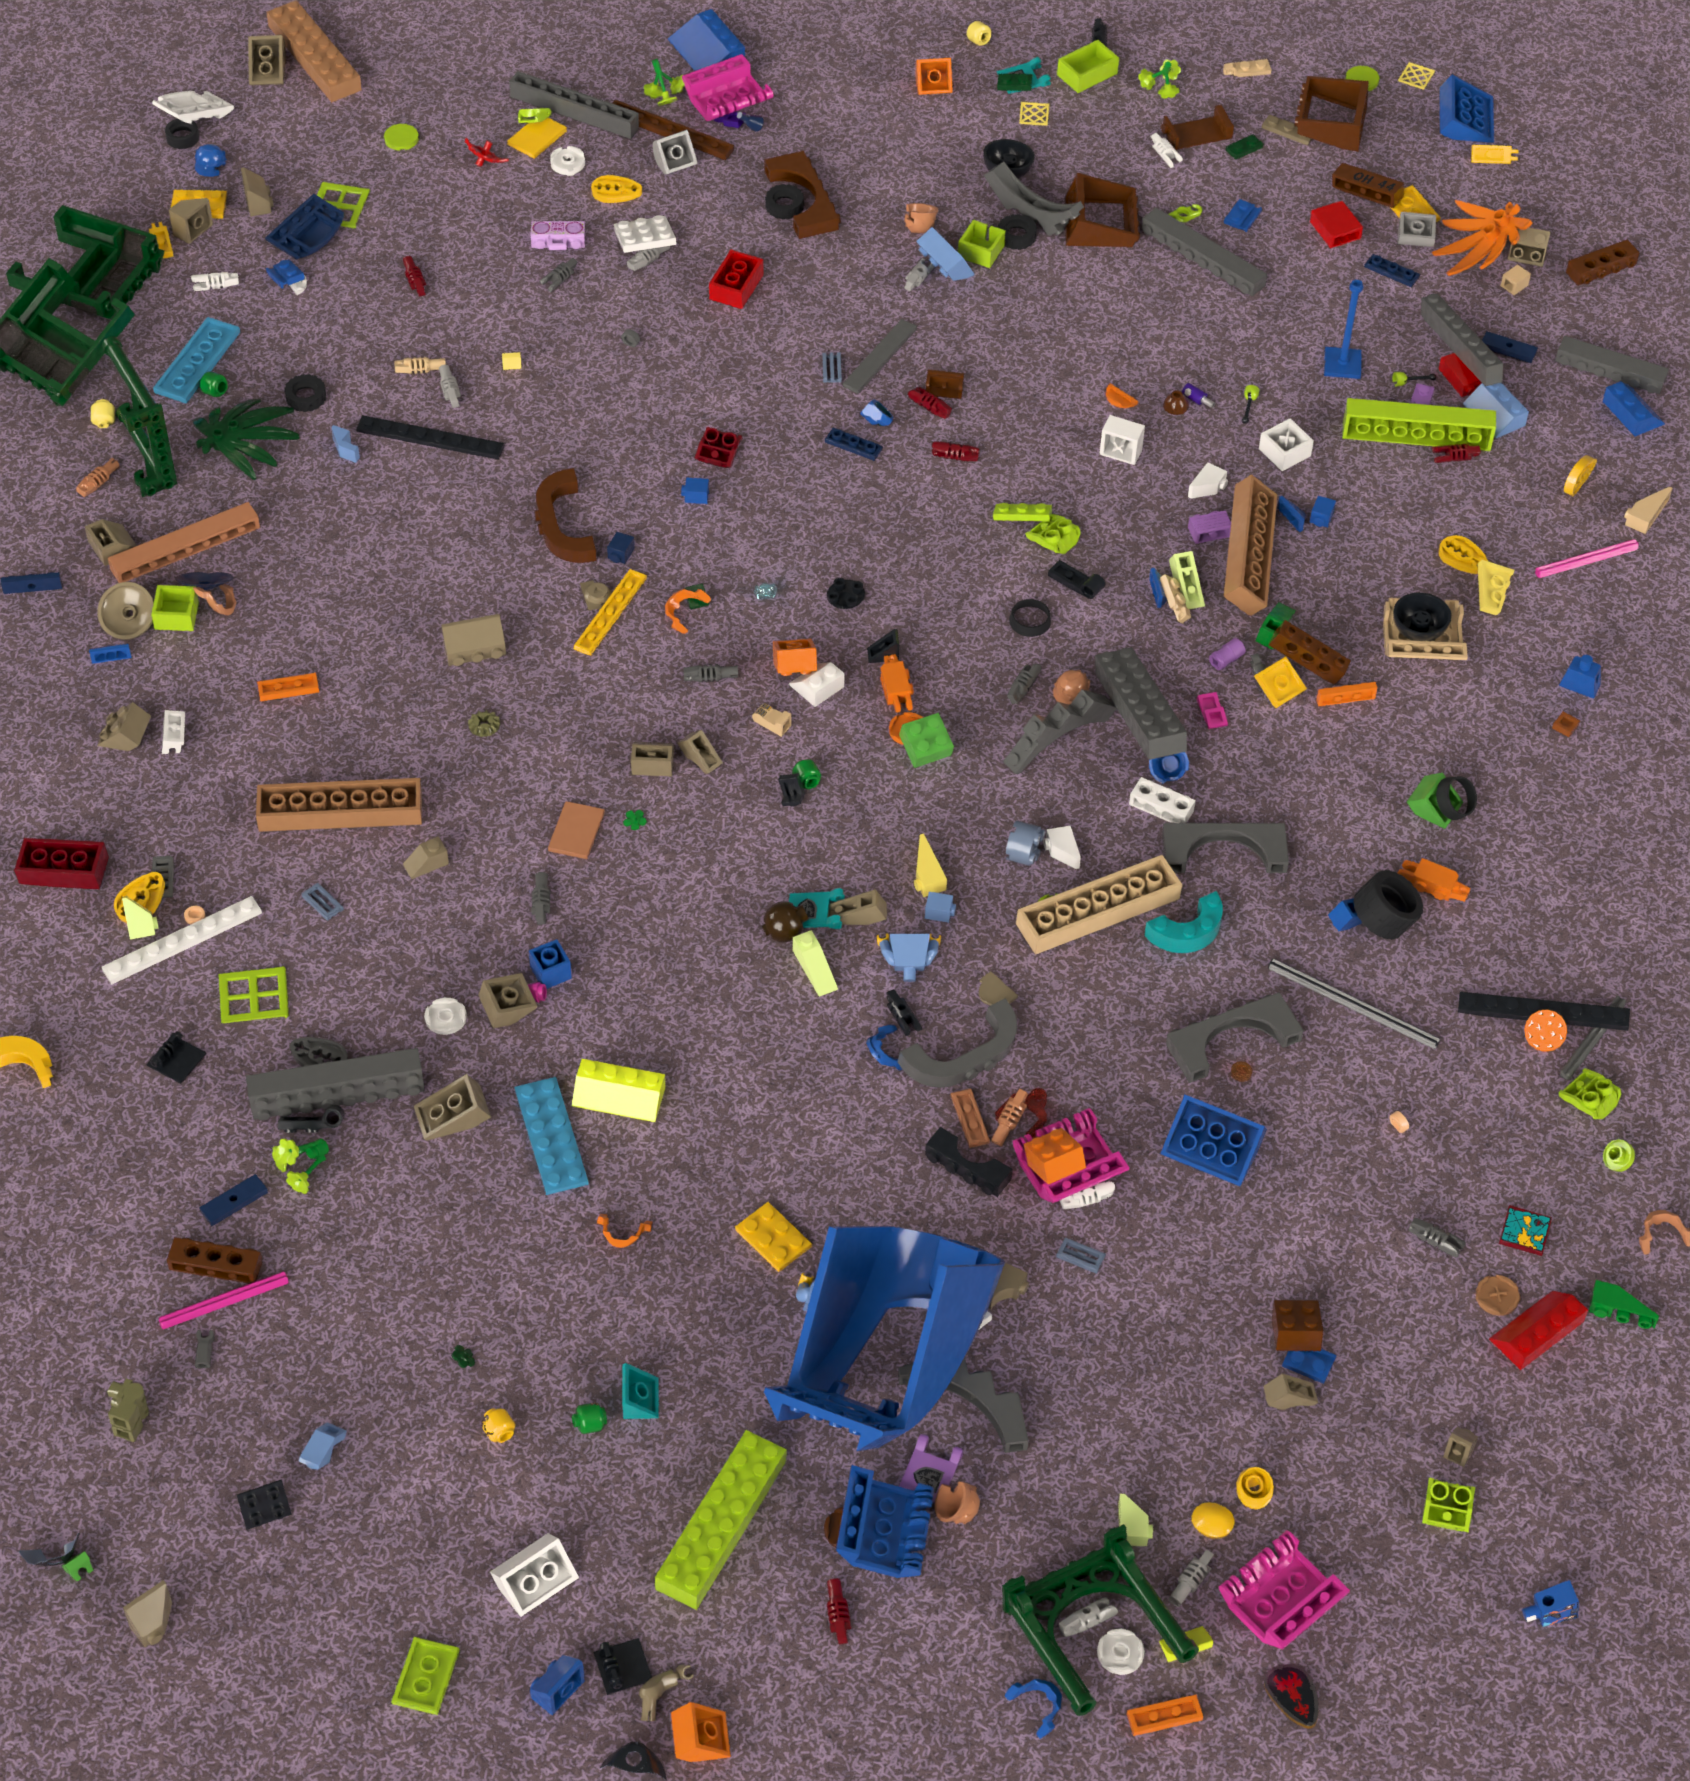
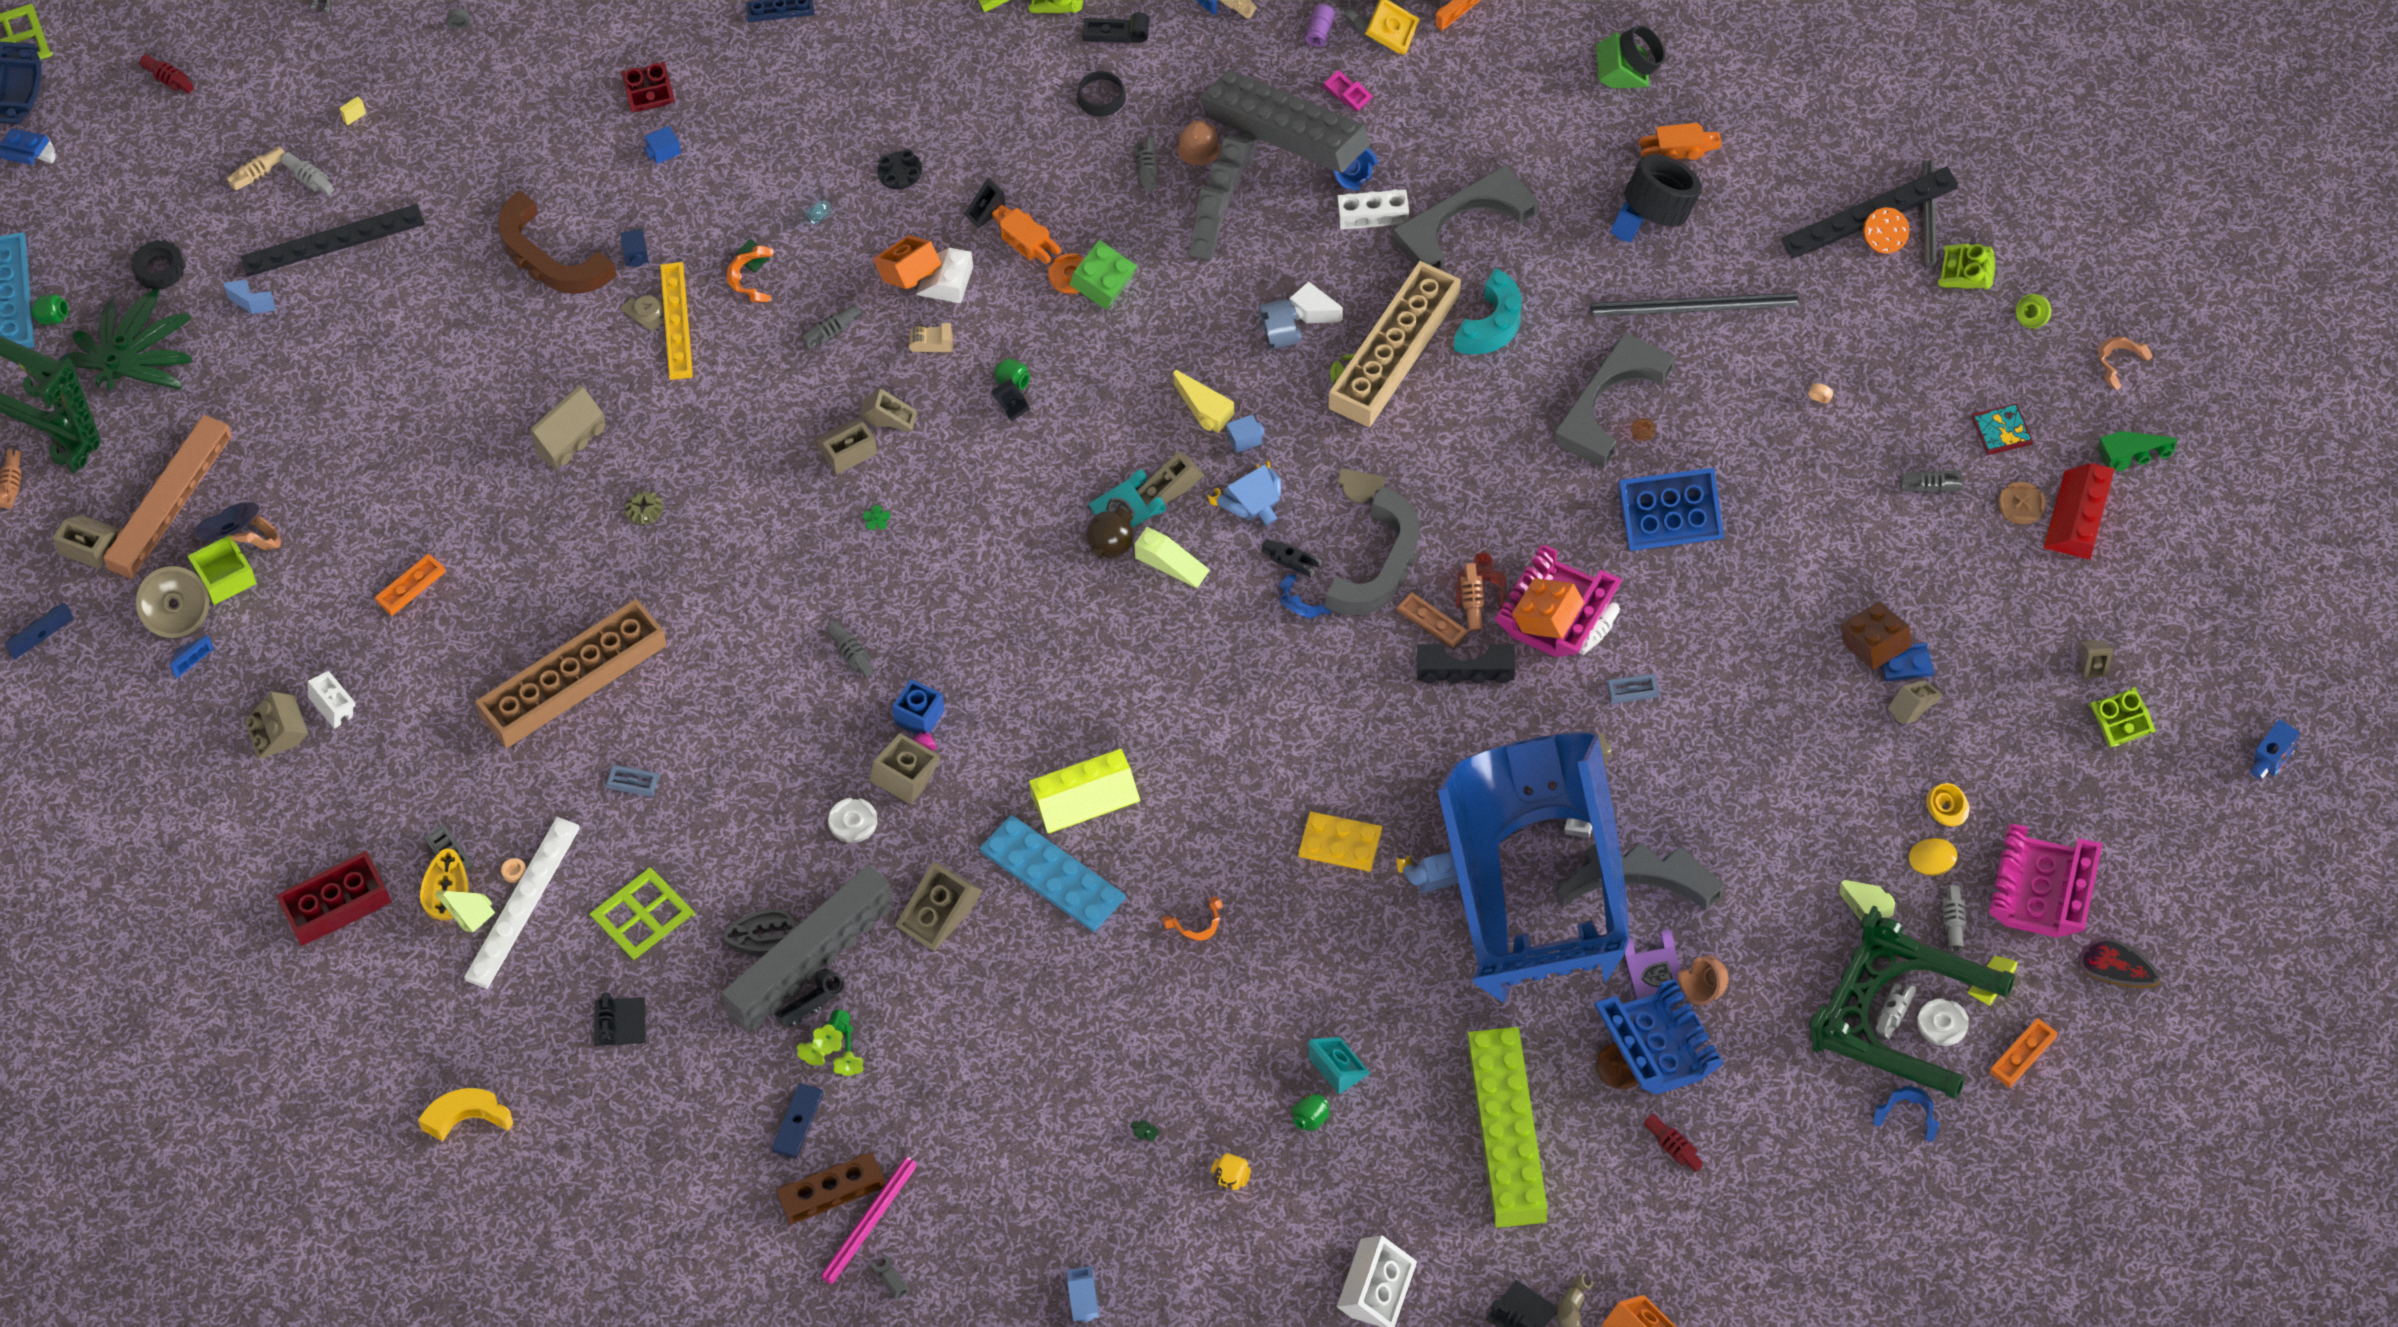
camera: 30 degrees left, 5 degrees up
(426, 858) = (704, 676): dark tan slope -> none
(576, 830) = (827, 561): nougat tile -> none

